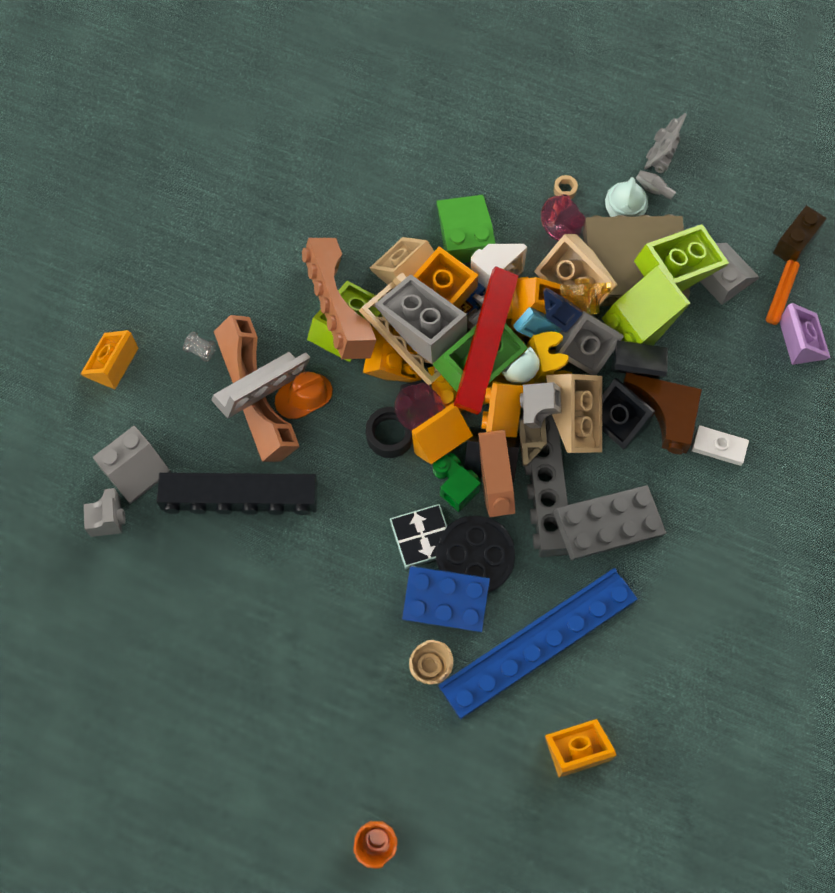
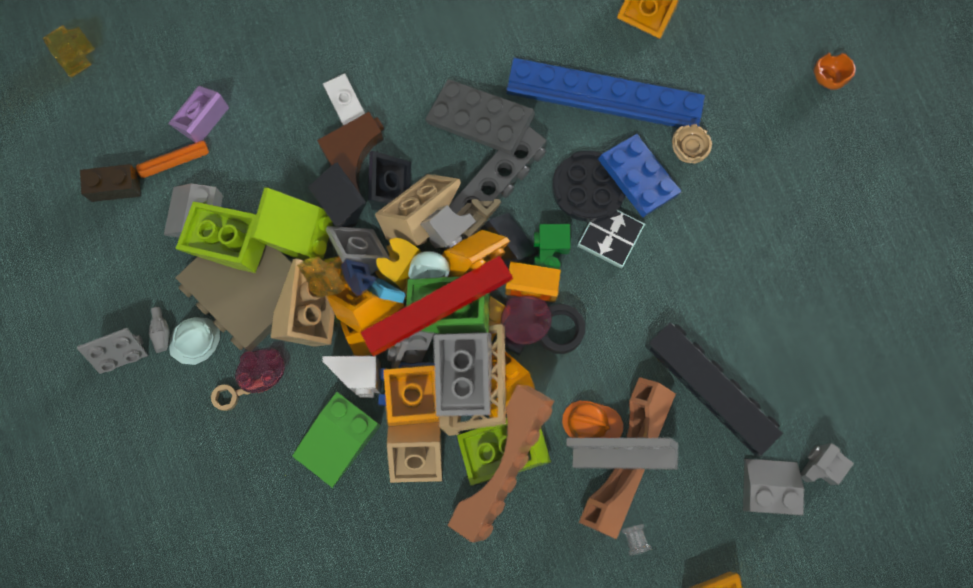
camera: 135 degrees left, 10 degrees up
(496, 473) = (526, 214): nougat slope -> none

